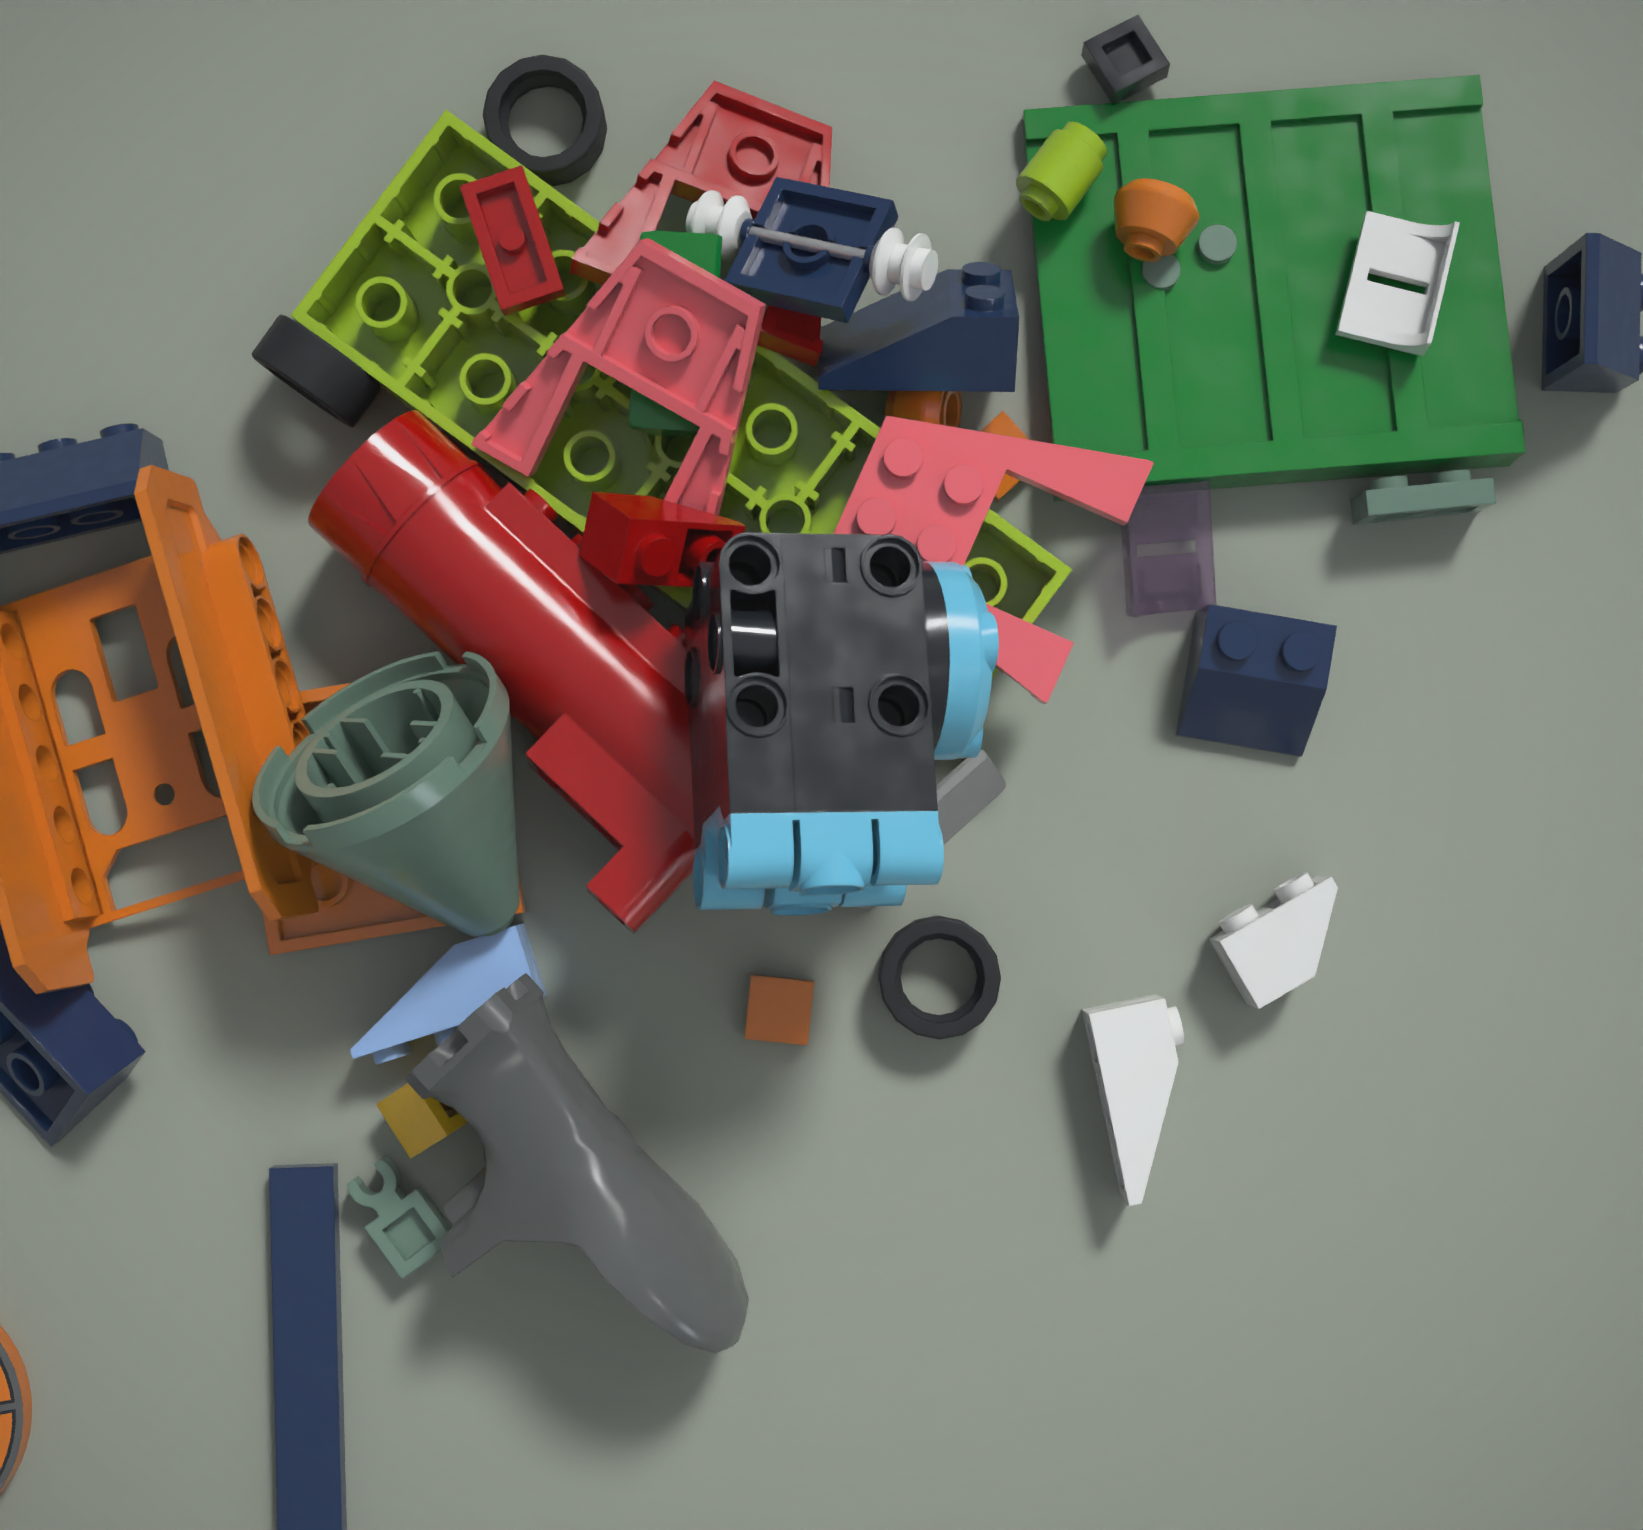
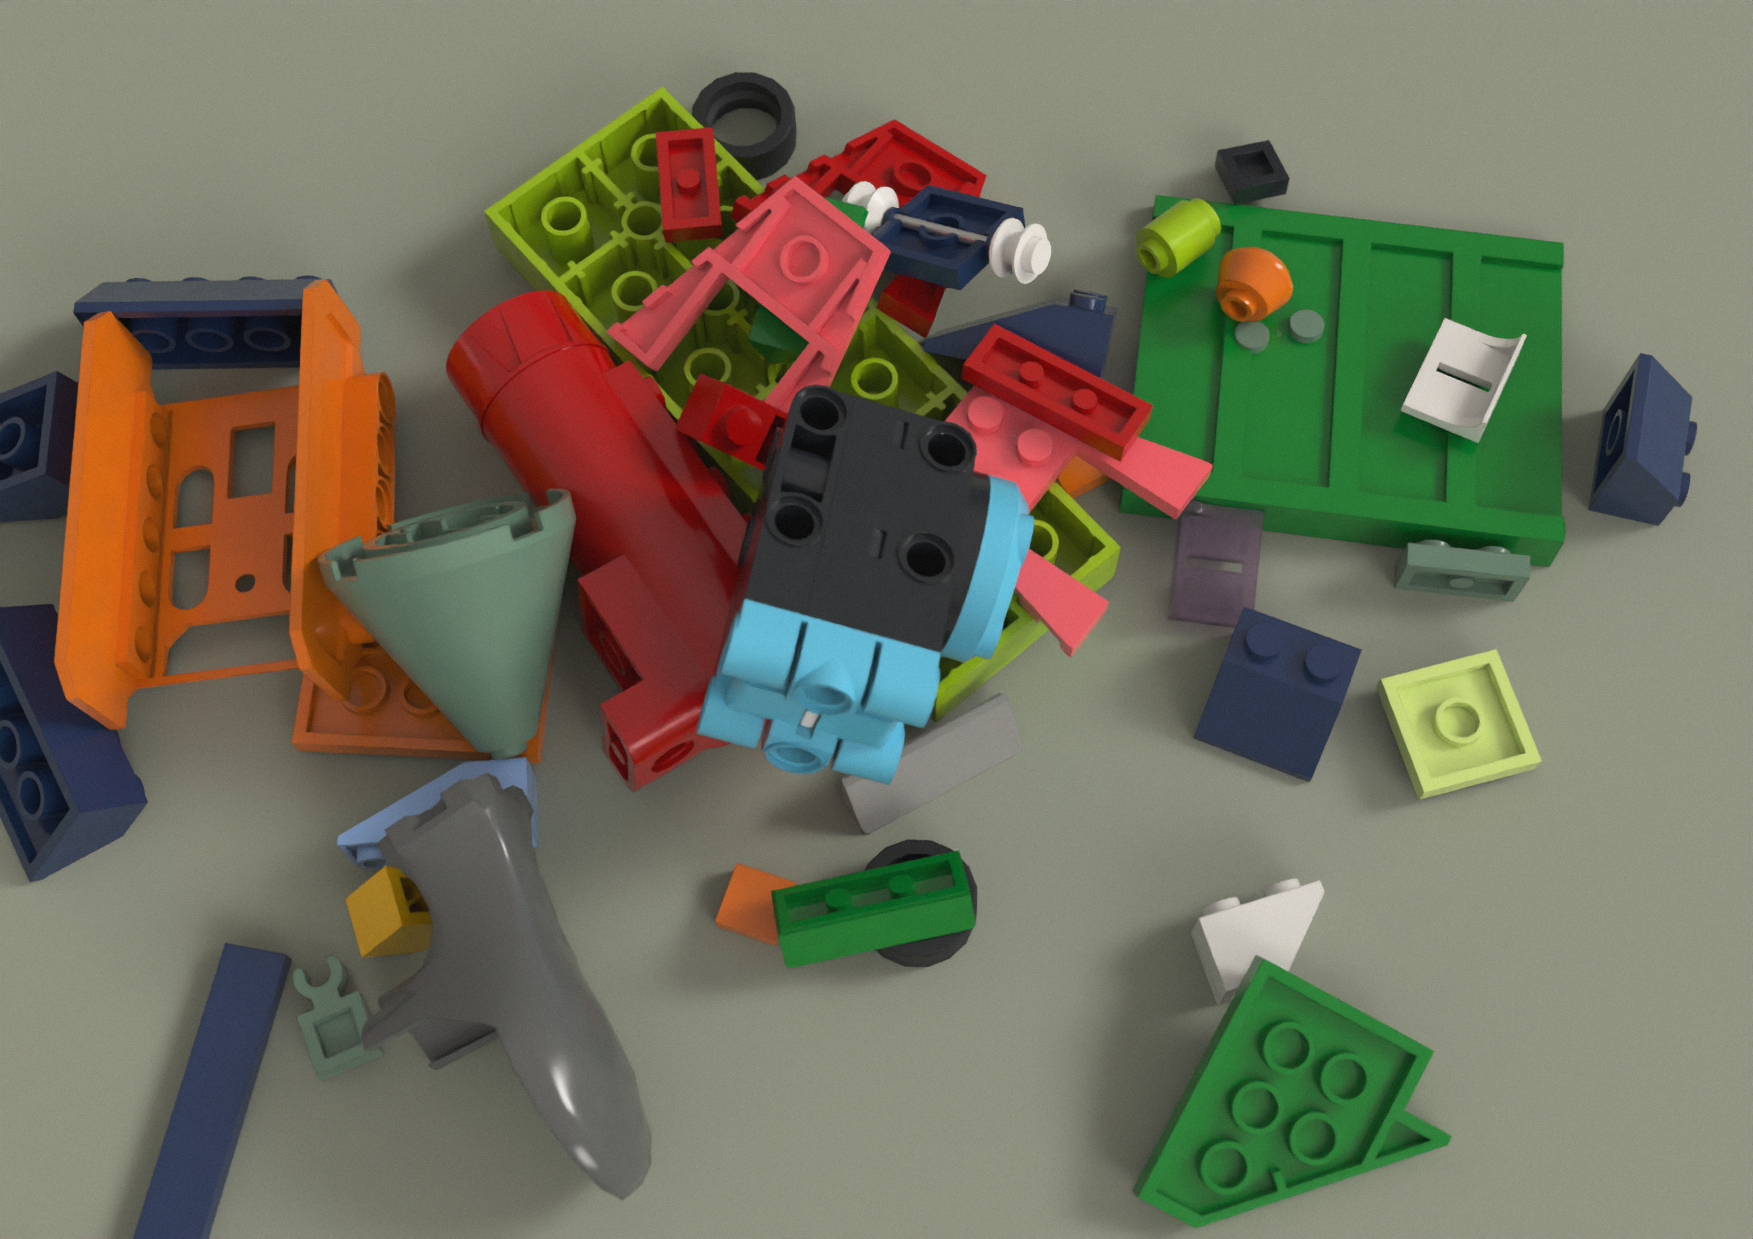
camera: 15 degrees right, 20 degrees down
(316, 370) = (490, 260): black tyre -> none
(899, 1002) = (873, 909): none -> green slope
(975, 420) = (1057, 392): none -> red plate
(1134, 1074) = (1091, 1025): white slope -> none
(1331, 1094) = (1286, 1103): none -> green wing
(1440, 669) = (1458, 724): none -> yellowish green plate

